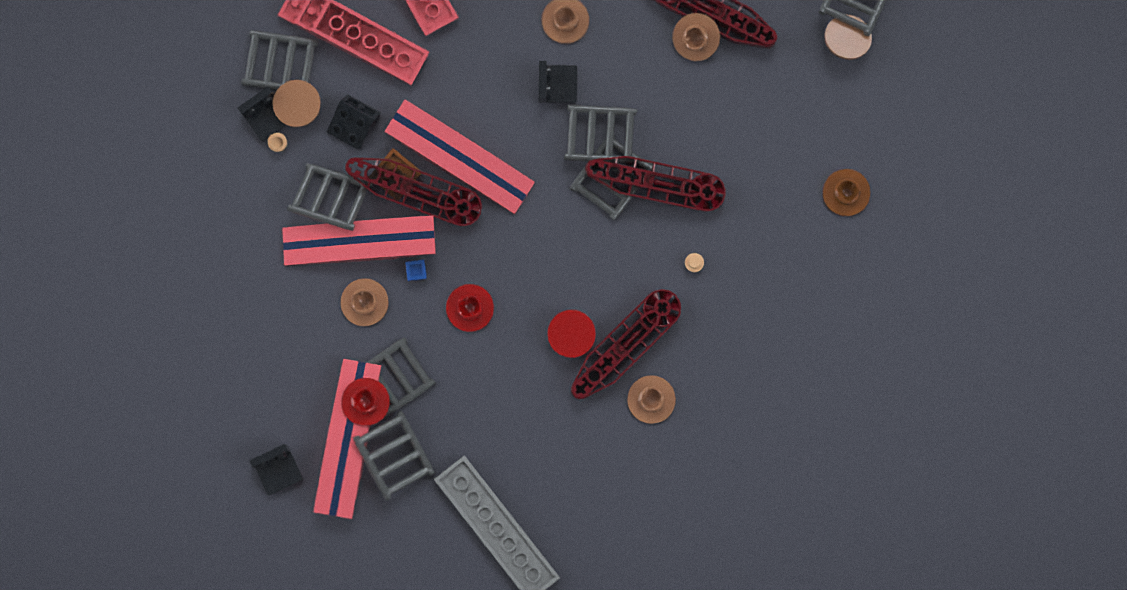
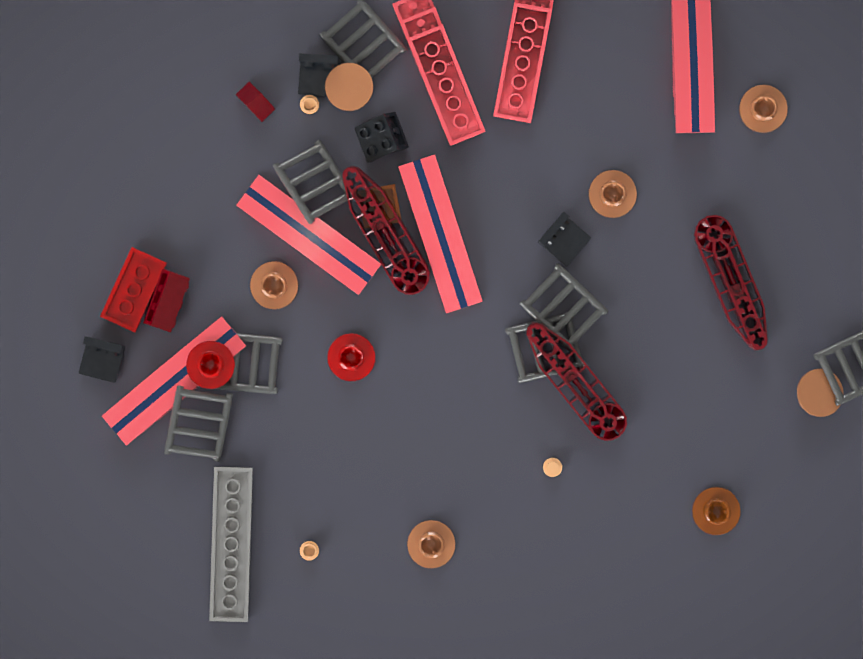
camera: 40 degrees right, 5 degrees up
(234, 174) = (255, 101): none -> dark red slope
(258, 395) = (133, 289): none -> red plate
(290, 381) = (167, 300): none -> dark red brick
(416, 270) = (333, 294): blue plate -> none
(561, 482) = (309, 550): none -> light nougat plate
(571, 333) = (411, 443): red piece -> none
(618, 352) = (435, 486): dark red beam -> none
(696, 37) = (702, 293): nougat piece -> none

